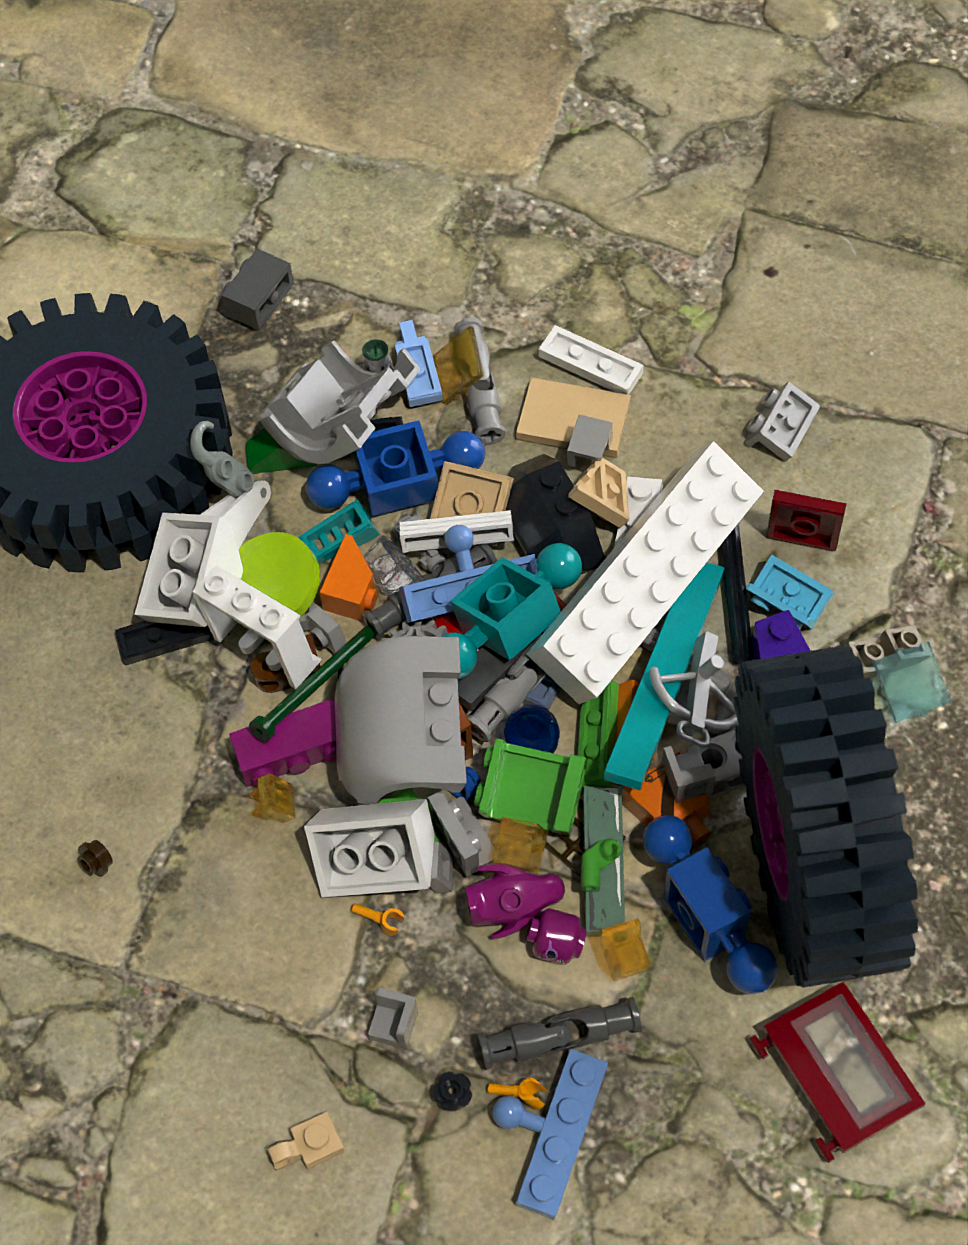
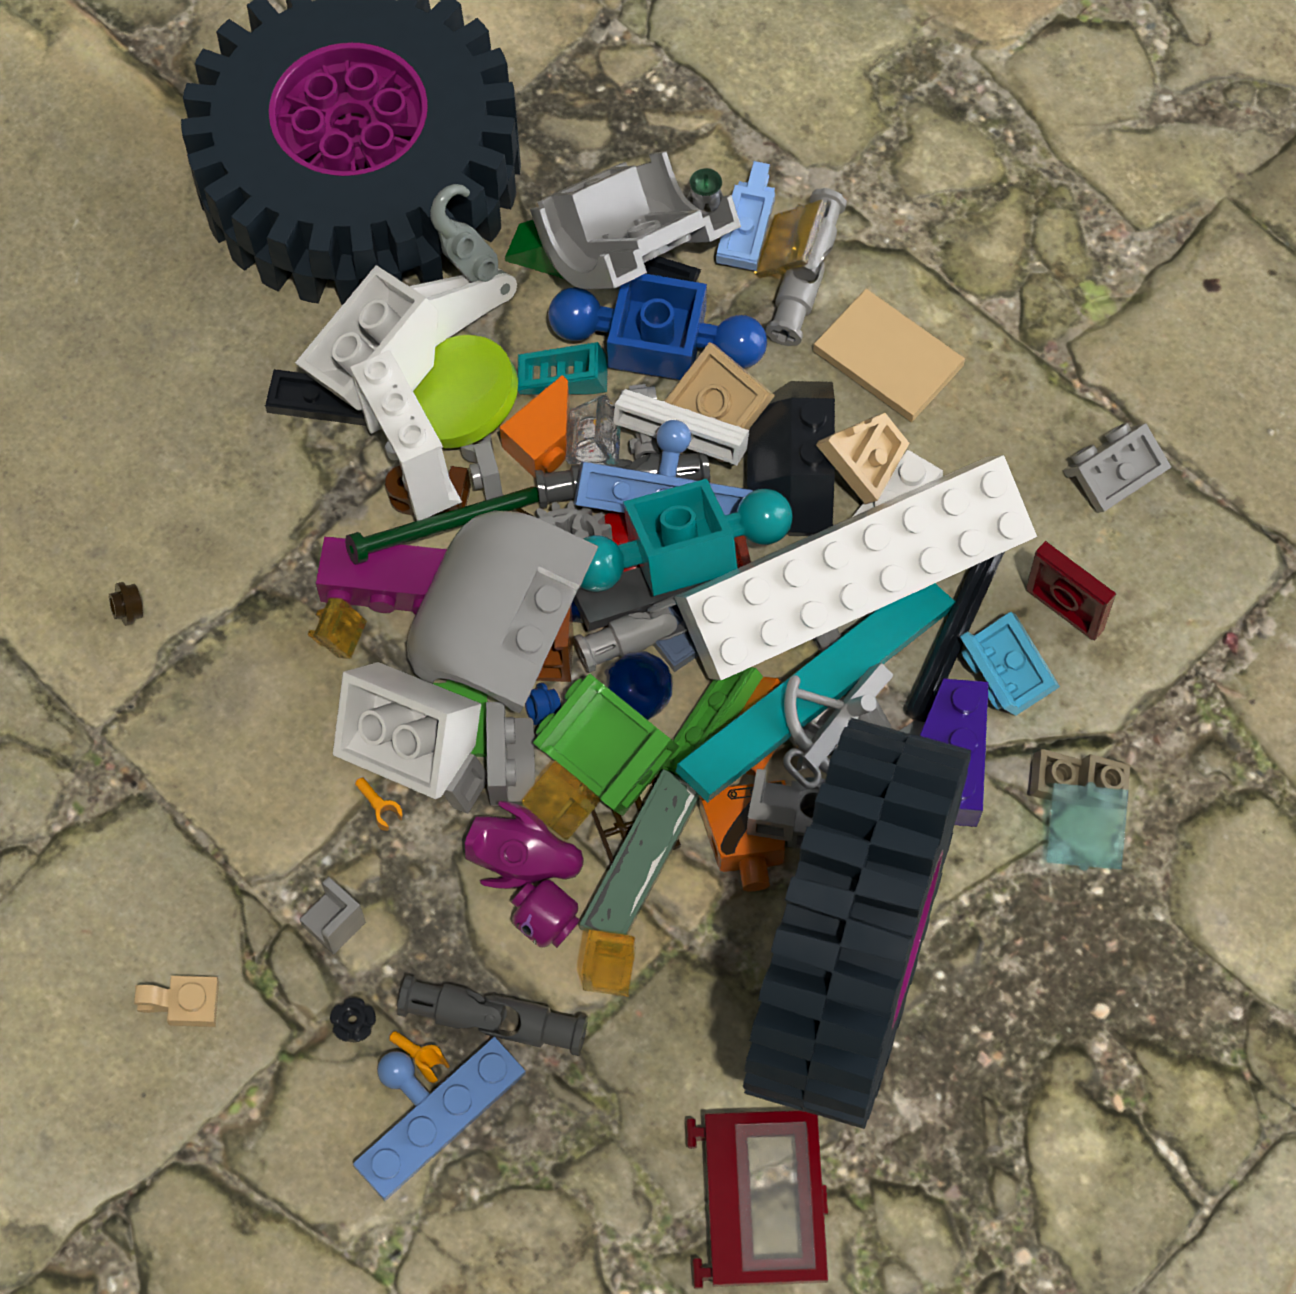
camera: 25 degrees right, 5 degrees up
(257, 289) = (621, 54): dark grey brick -> none
(589, 439) = (882, 389): light grey panel -> none
(590, 360) = (943, 299): white plate -> none
(597, 859) = (627, 854): bright green arm -> none
(709, 905) = (715, 957): blue brick -> none

